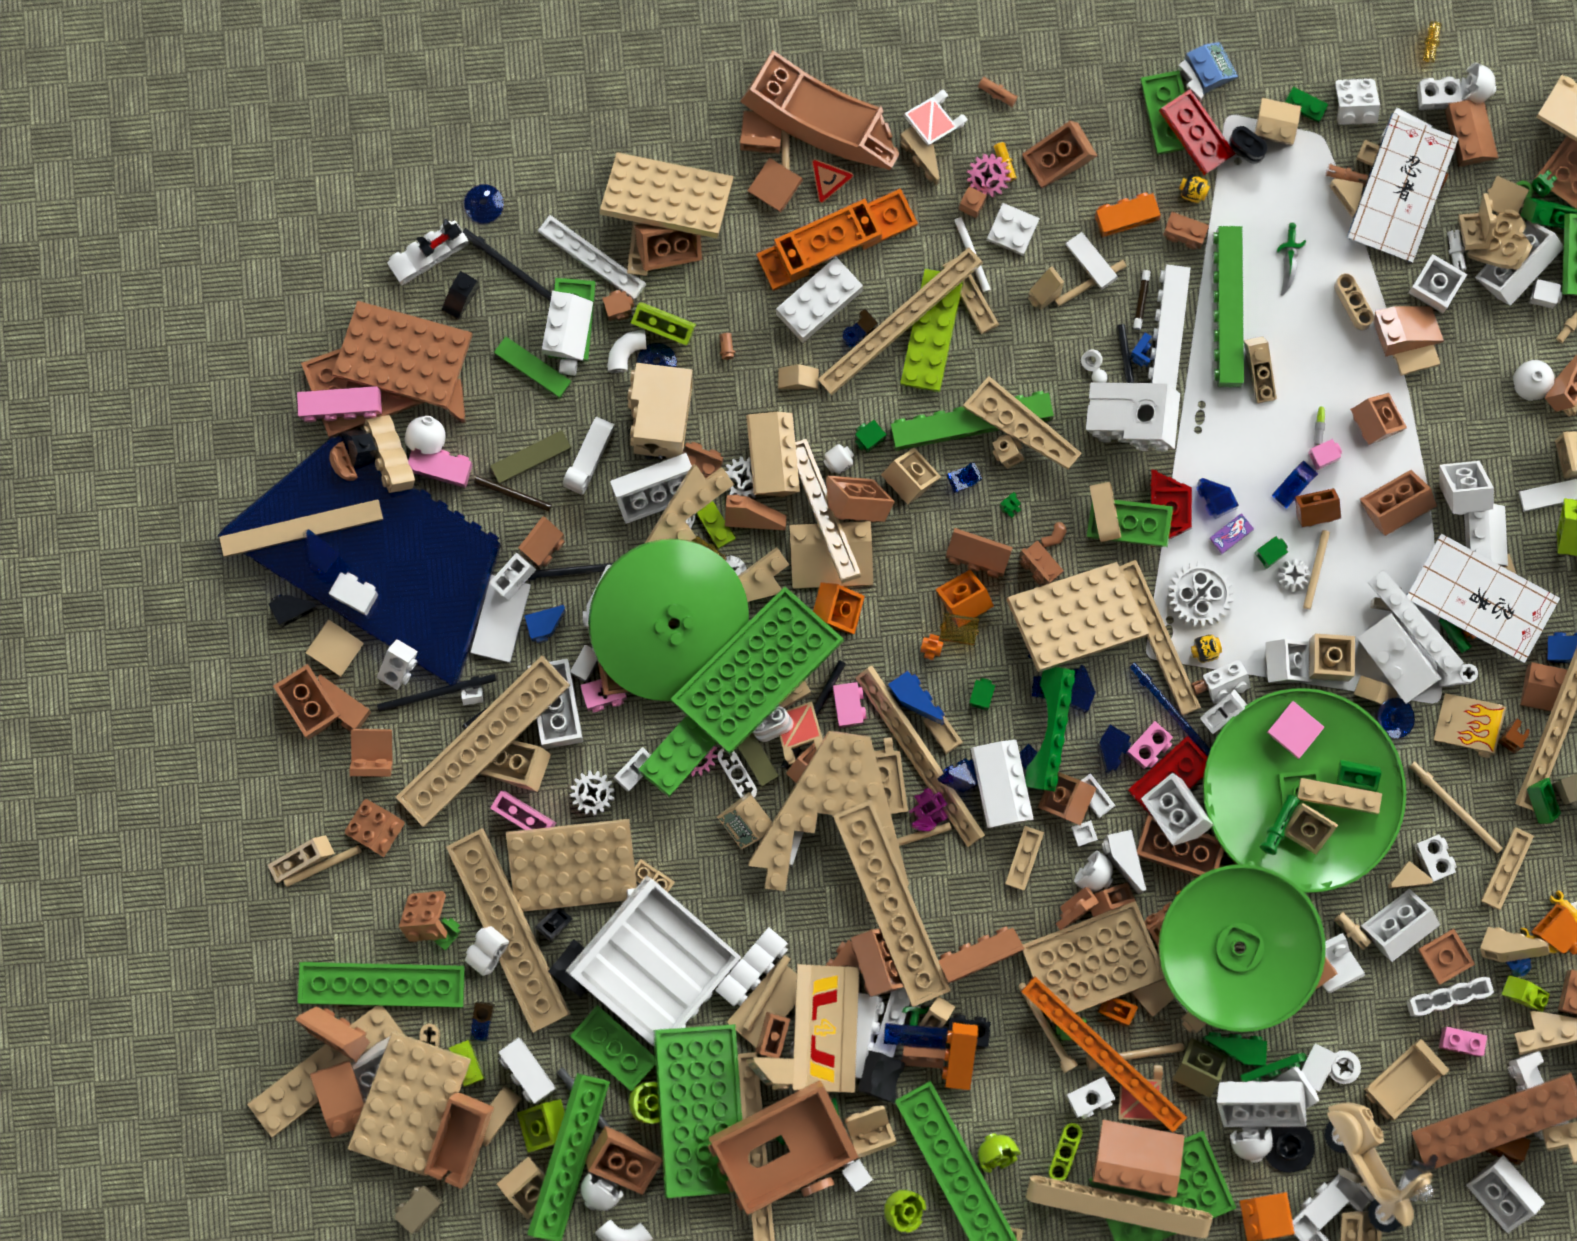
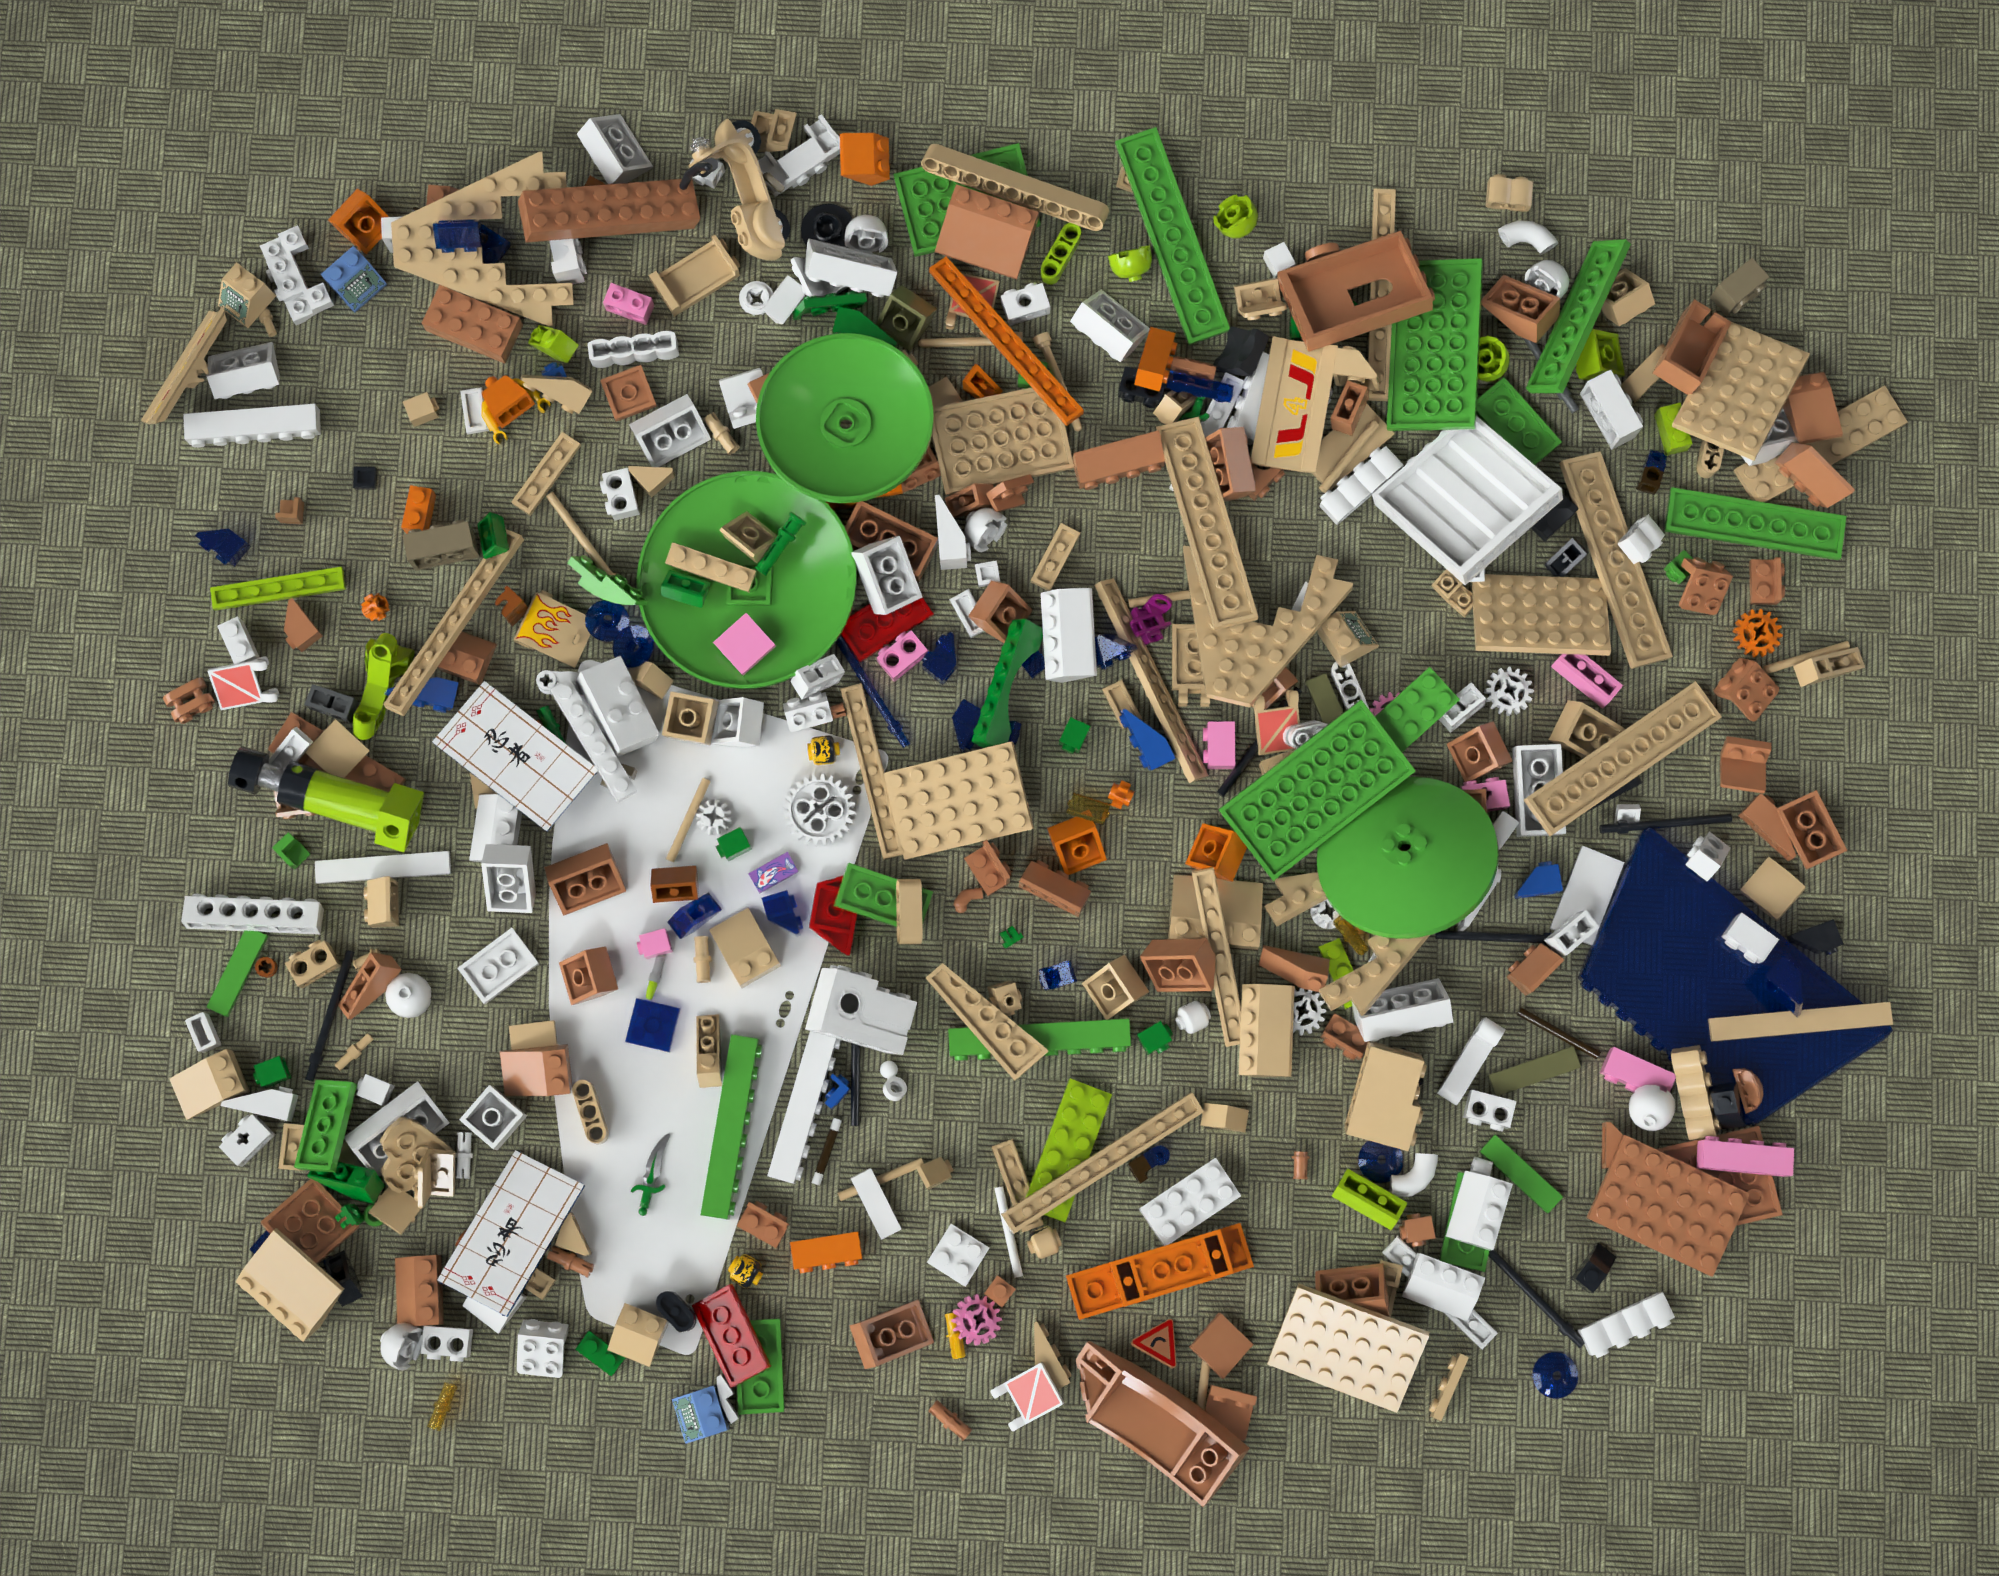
camera: 170 degrees left, 0 degrees up
(366, 931) = (1766, 581): none -> nougat bracket
(374, 870) = (1765, 637): none -> orange gear
(449, 232) = (1602, 1339): black piece -> none
(566, 422) = (1490, 1104): none -> white brick
(576, 179) = (1447, 1386): none -> tan plate
(590, 260) = (1443, 1286): none -> white slope
(612, 732) = (1479, 752): none -> nougat slope
(940, 248) = (1044, 1242): none -> tan head
(1007, 1088) = (1110, 325): none -> white slope
(1245, 462) = (745, 948): none -> tan slope
(1280, 447) = (702, 959): none -> tan pin
(1313, 385) = (652, 1025): none -> clear blue plate
(1425, 738) = (606, 629): none -> clear blue dish
(1428, 764) = (607, 587): none -> slope
(1459, 416) = (498, 966): none -> white plate
(1539, 134) = (341, 1270): none -> black slope

